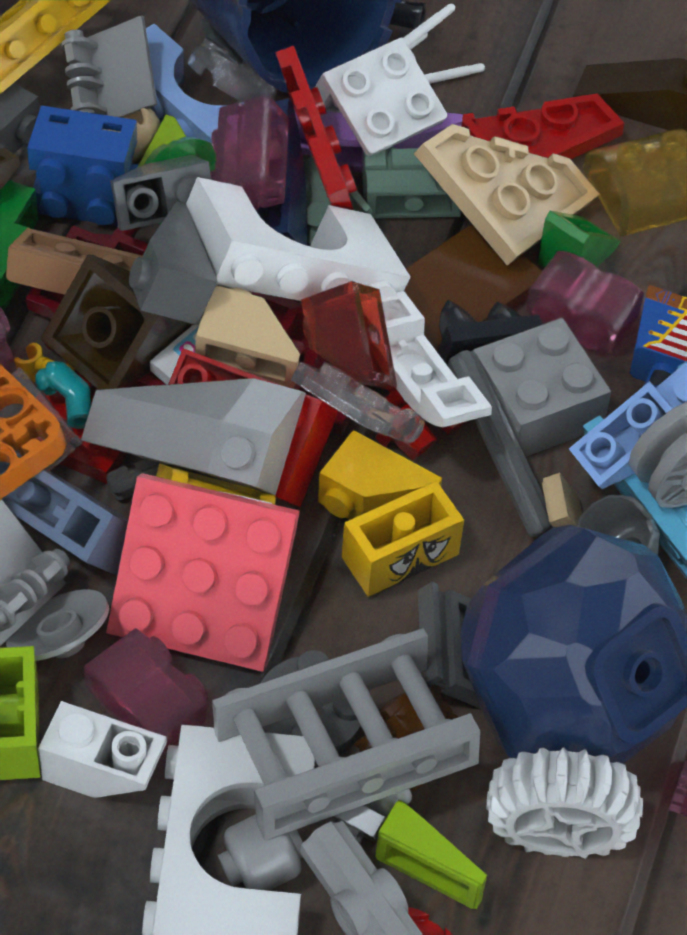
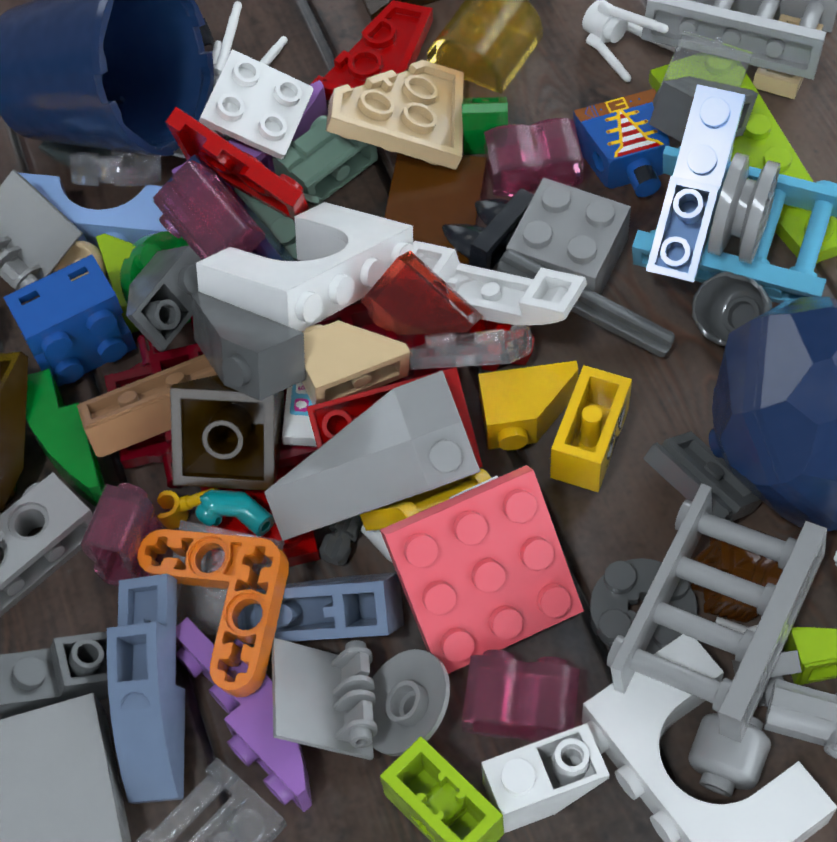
camera: 30 degrees left, 5 degrees up
(561, 501) = (671, 318): tan tile -> none

